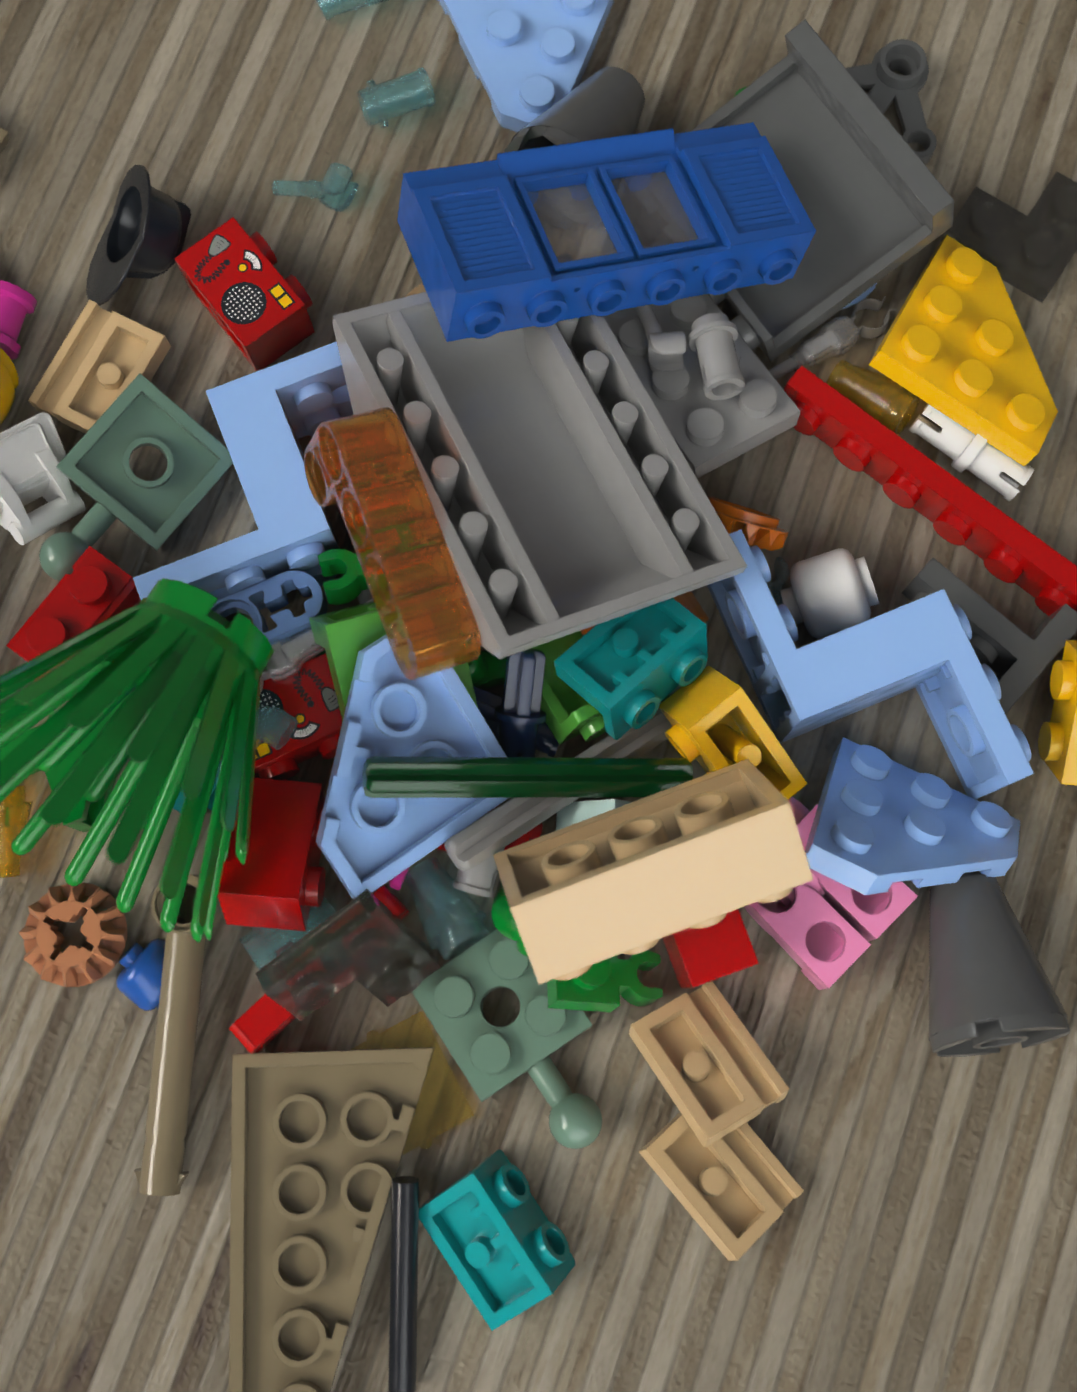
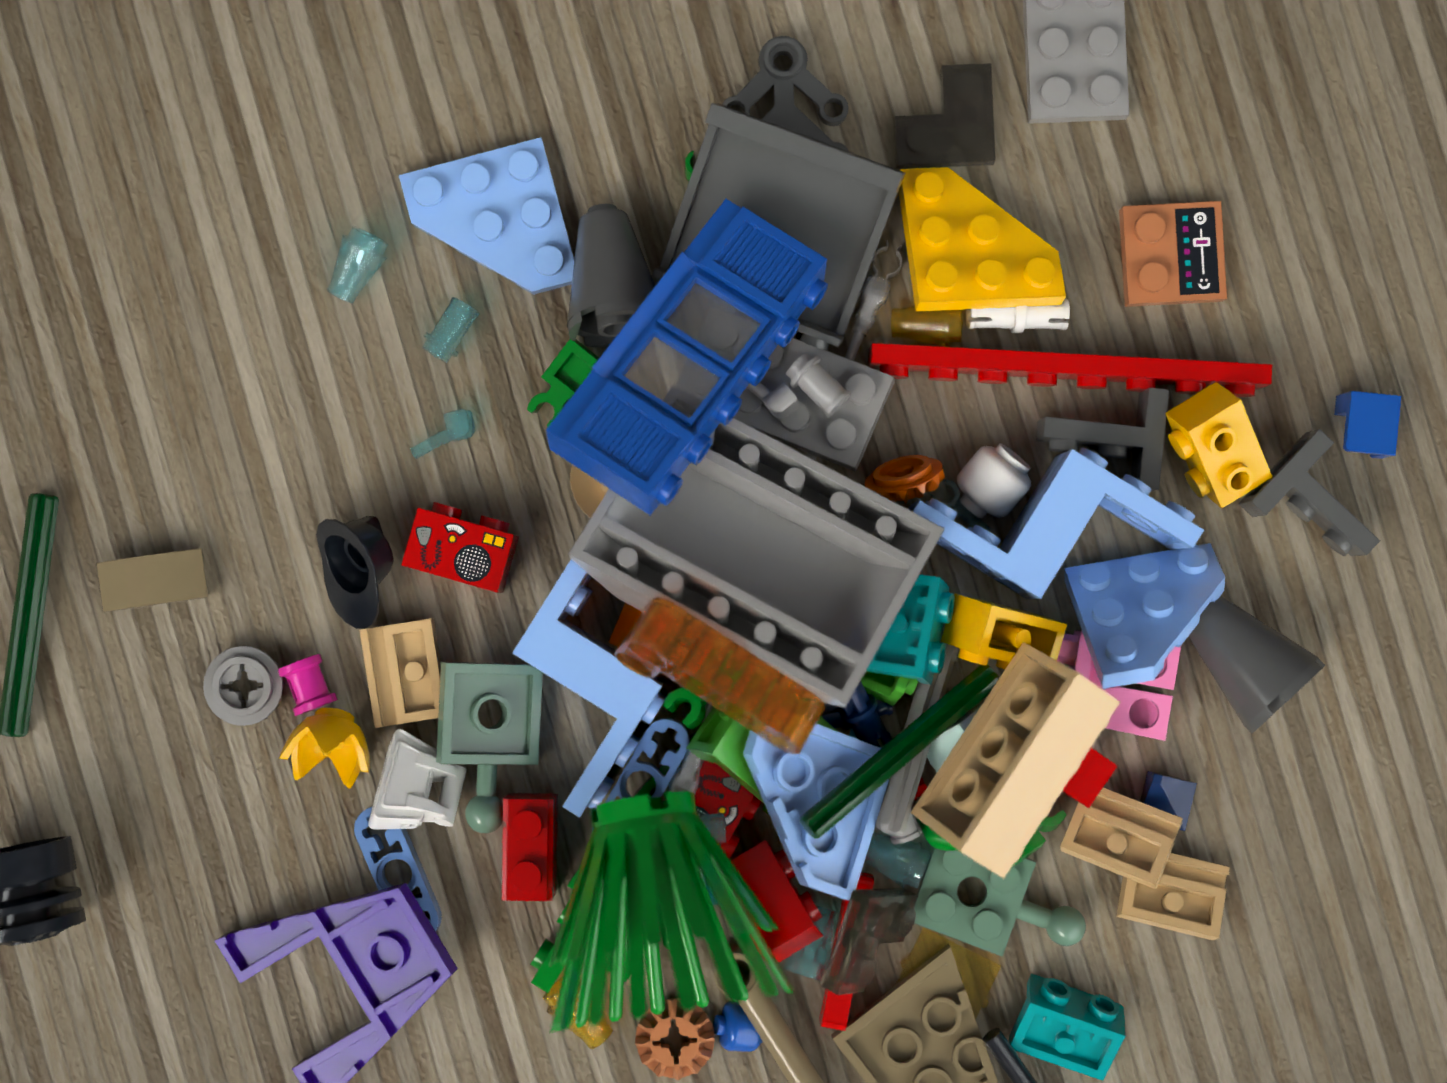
camera: 35 degrees left, 10 degrees up
(793, 1060) = (1169, 795): none -> dark blue slope

